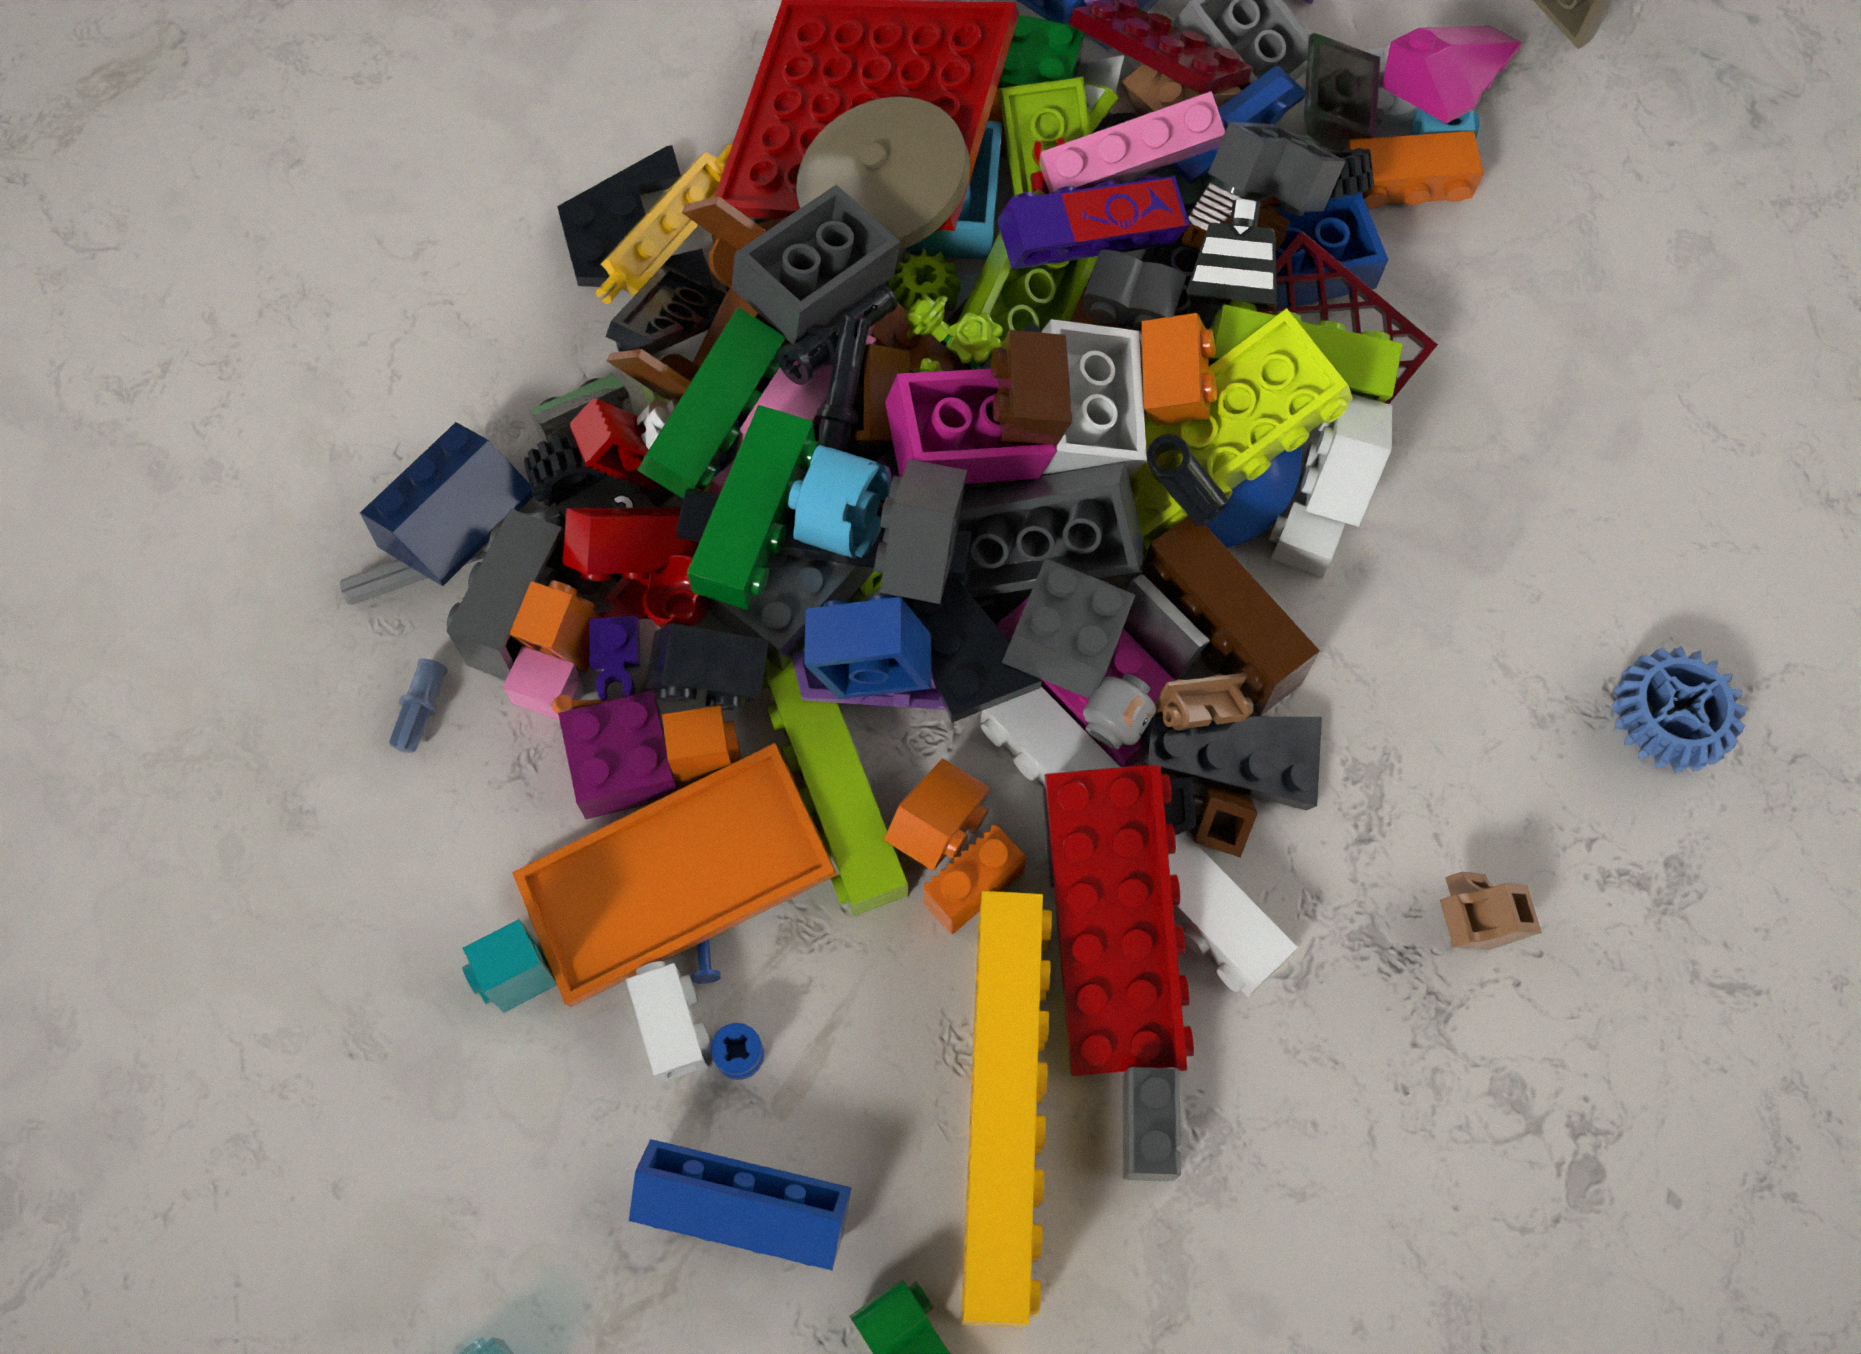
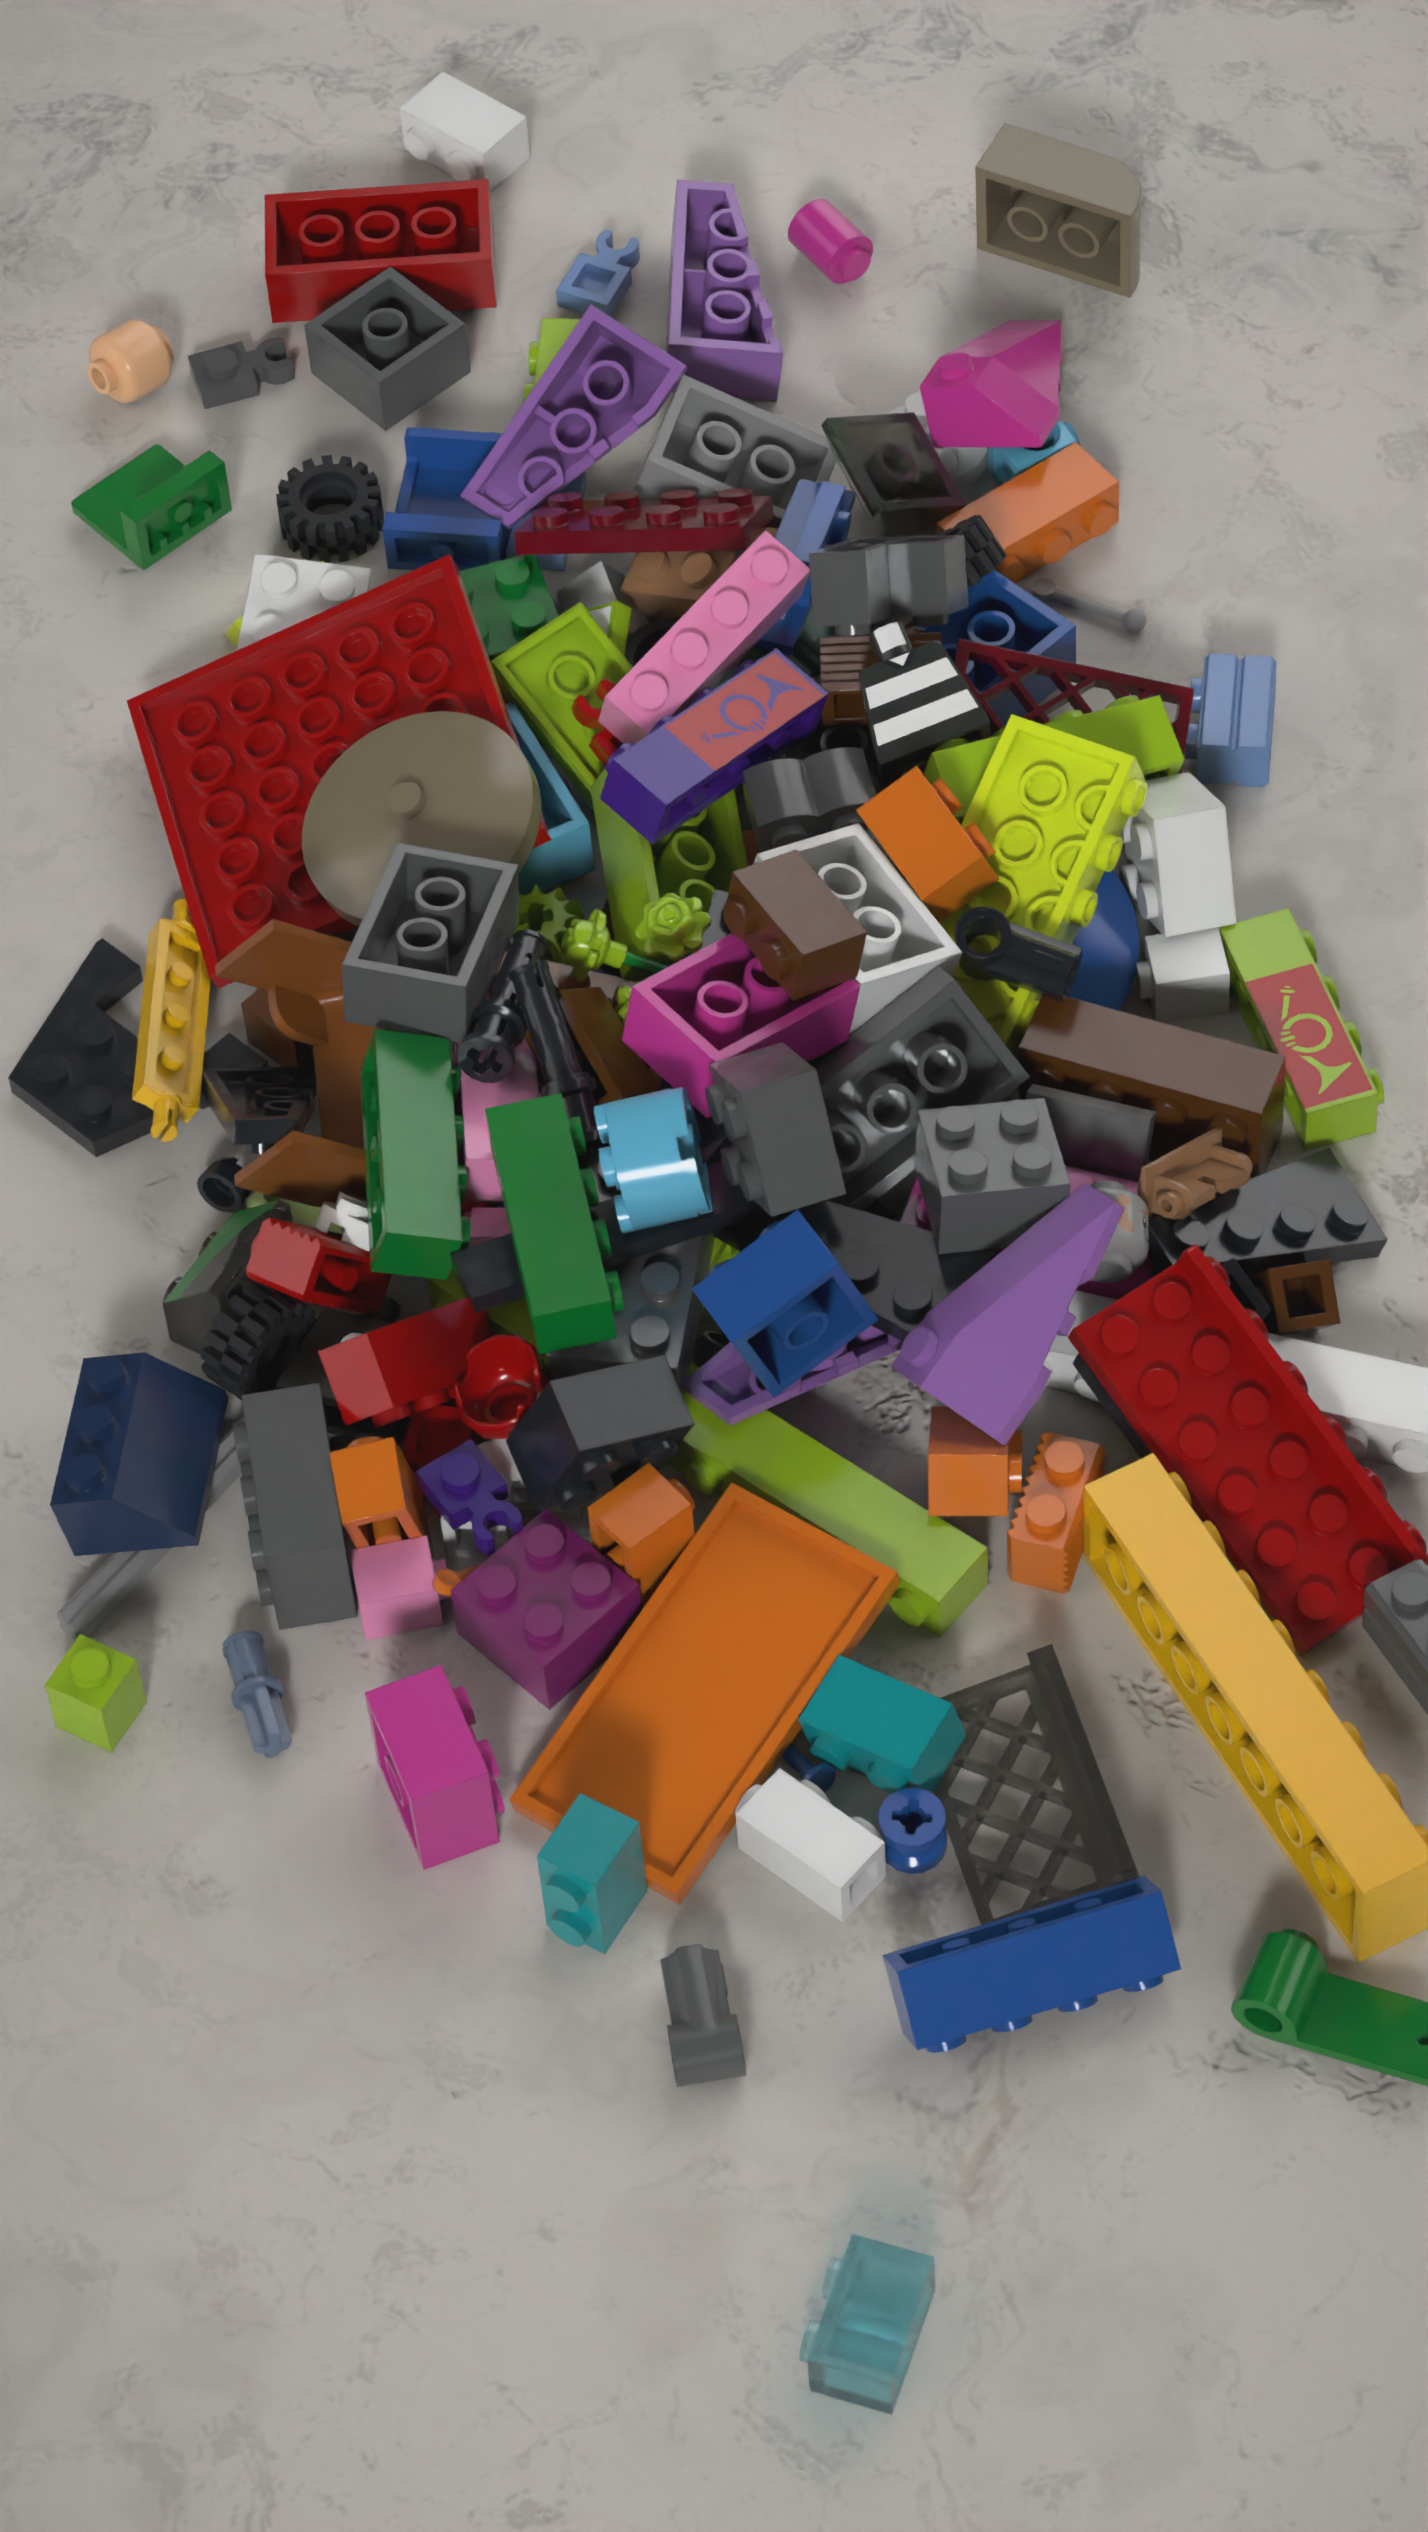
camera: 25 degrees left, 15 degrees down
(320, 649) = (96, 1693): none -> lime brick
(468, 828) = (435, 1765): none -> dark pink brick
(514, 1118) = (702, 2031): none -> dark grey piece
(760, 970) = (881, 1727): none -> teal brick
(865, 1082) = (1070, 1762): none -> clear smoke fence
(999, 741) = (992, 1334): none -> medium lavender wedge
(1355, 622) = (1297, 1015): none -> lime brick
(1394, 222) = (1046, 591): none -> light grey hinge
(1454, 378) = (1234, 720): none -> medium blue brick

